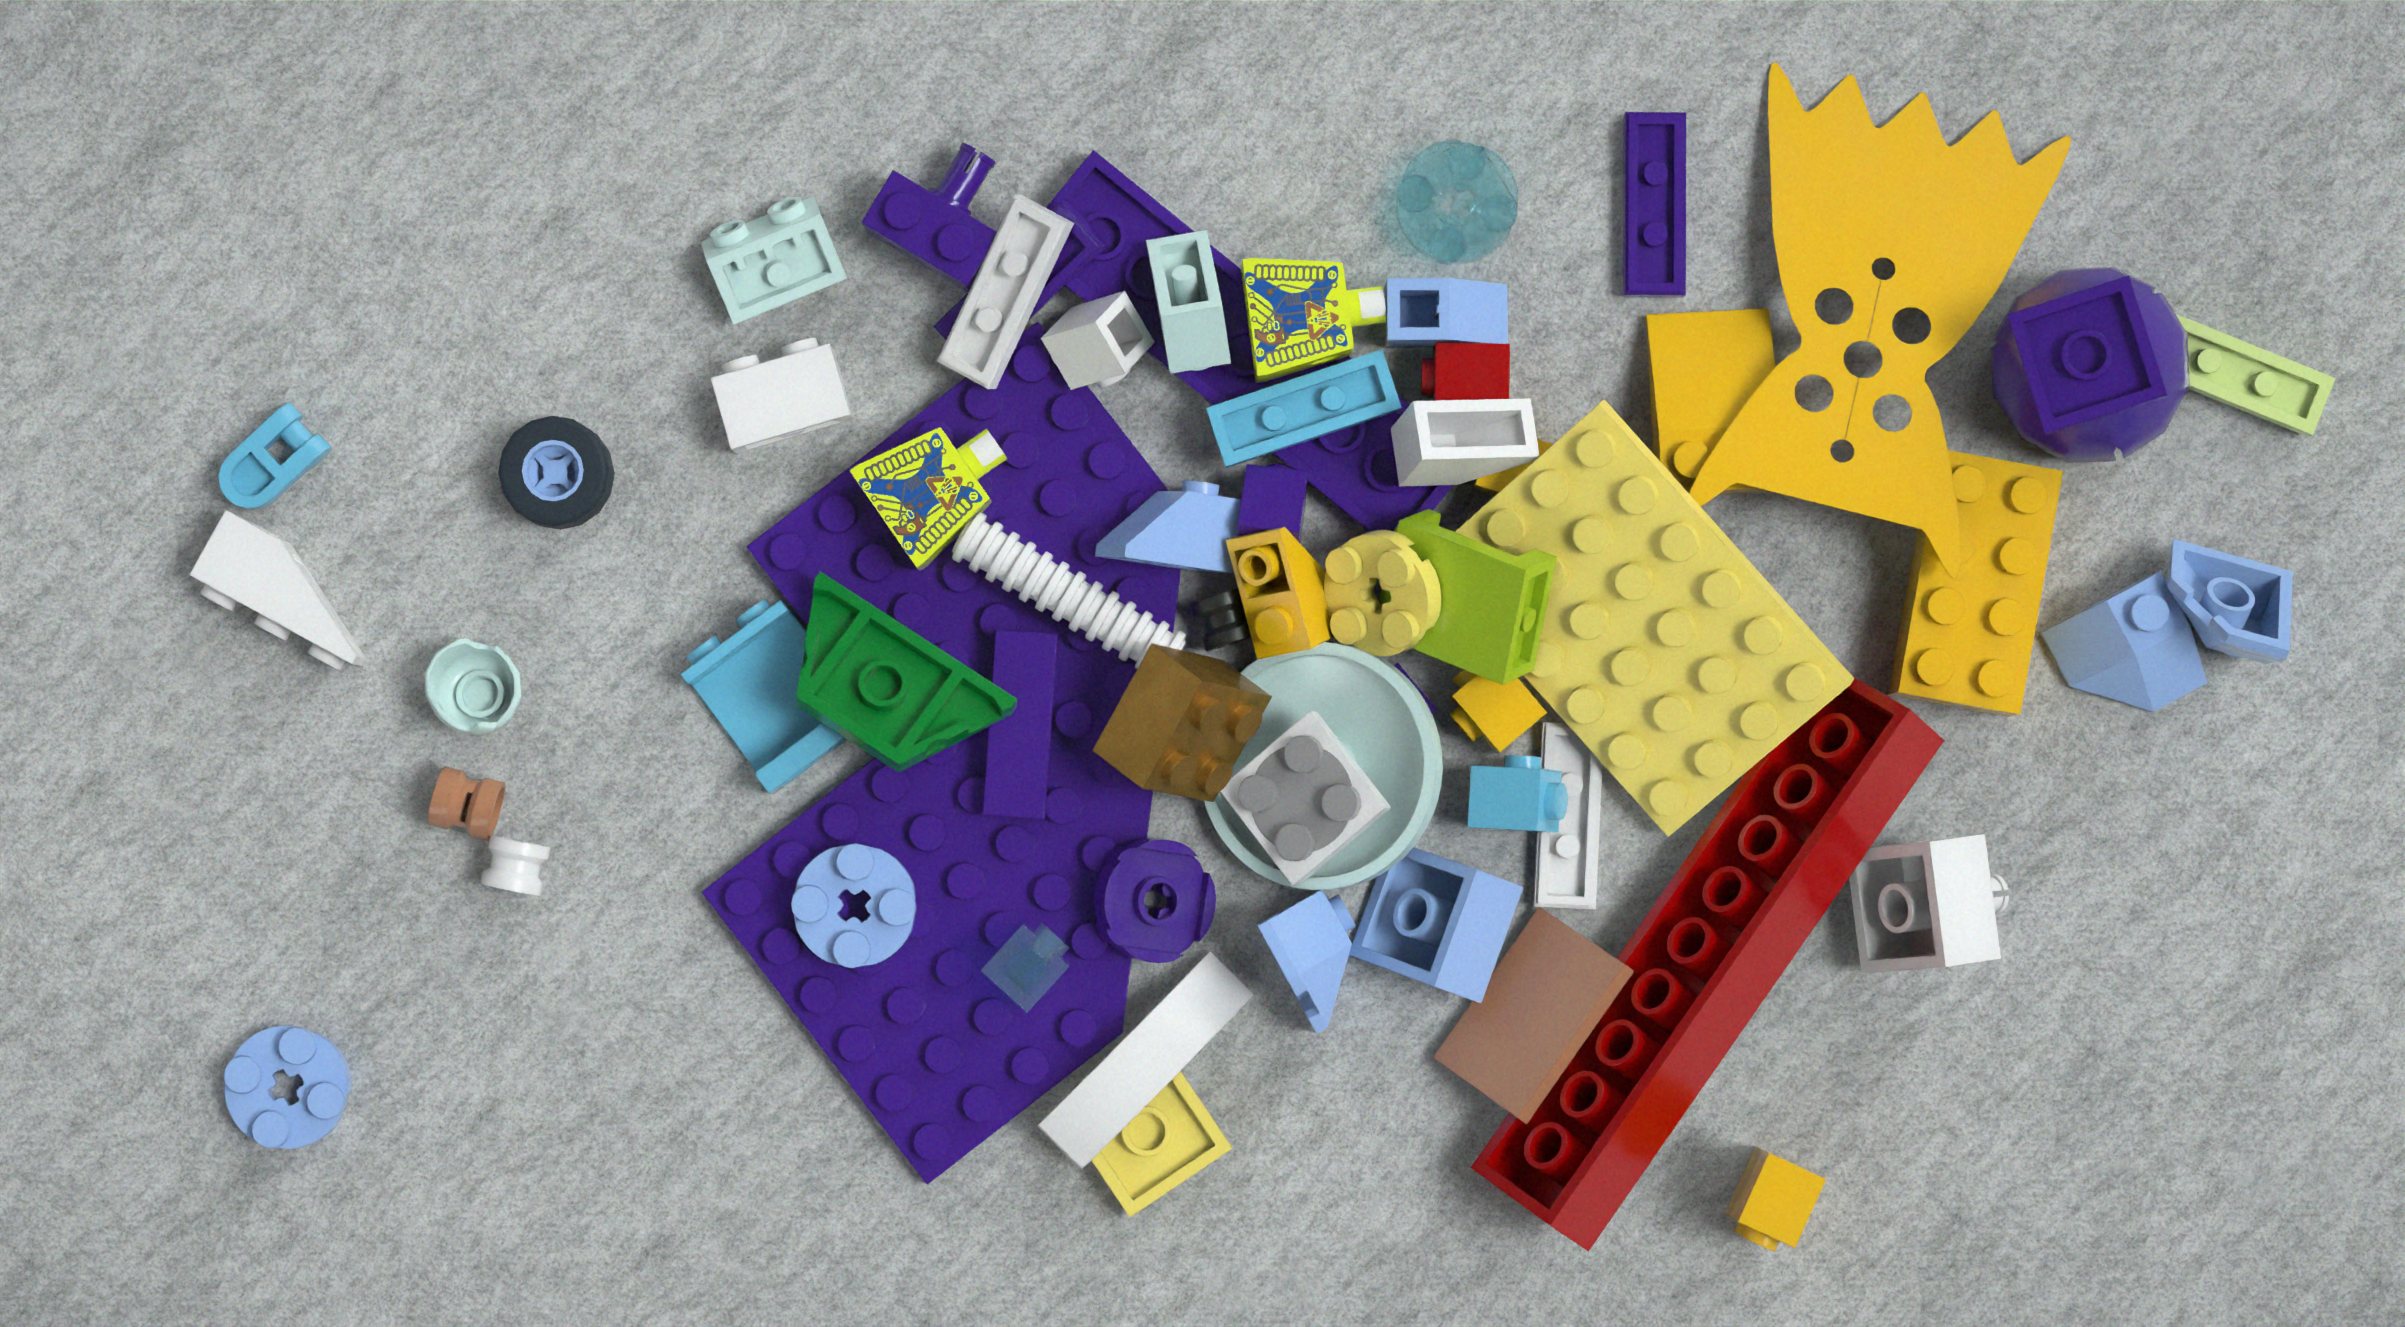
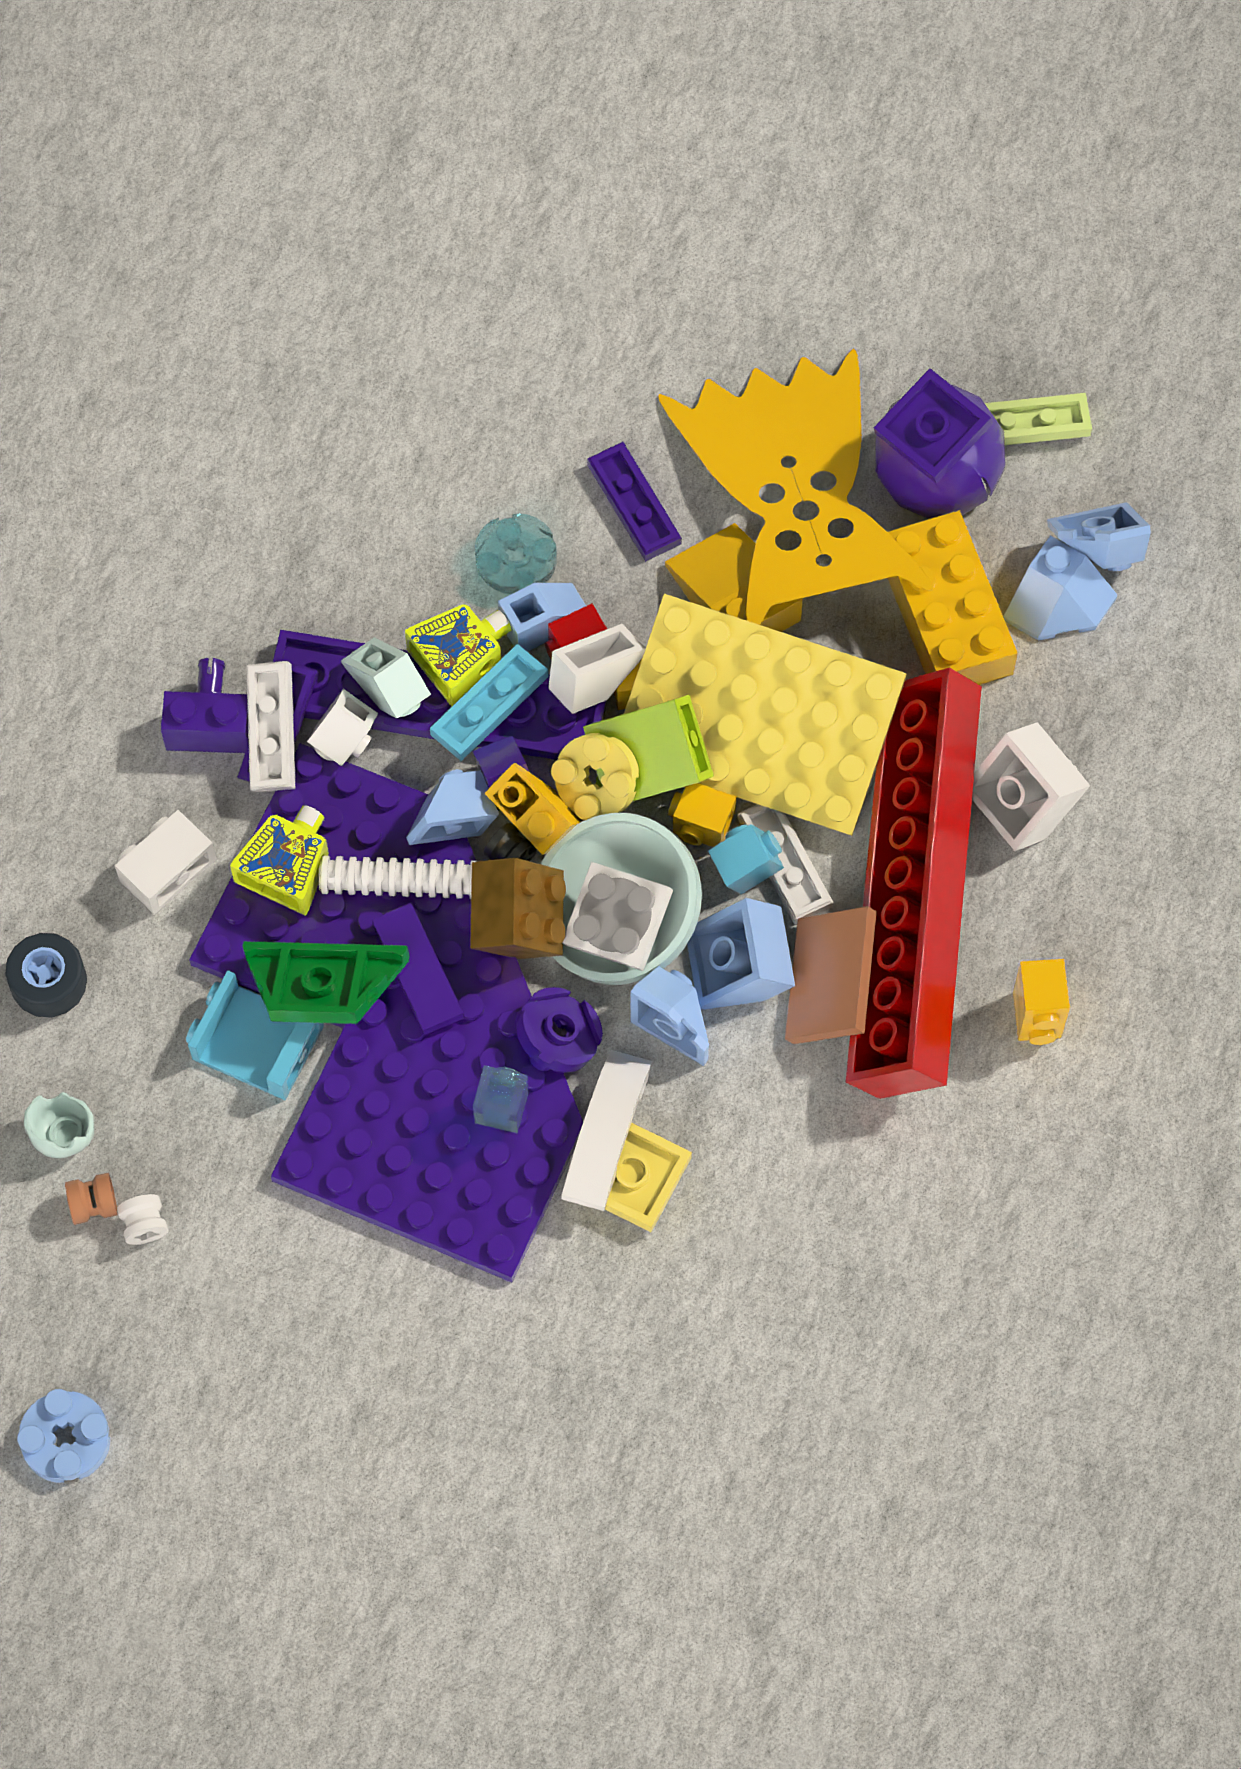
camera: 25 degrees left, 20 degrees down
(772, 258) = (118, 787): light aqua bracket -> none
(890, 908) = (362, 1104): light blue plate -> none

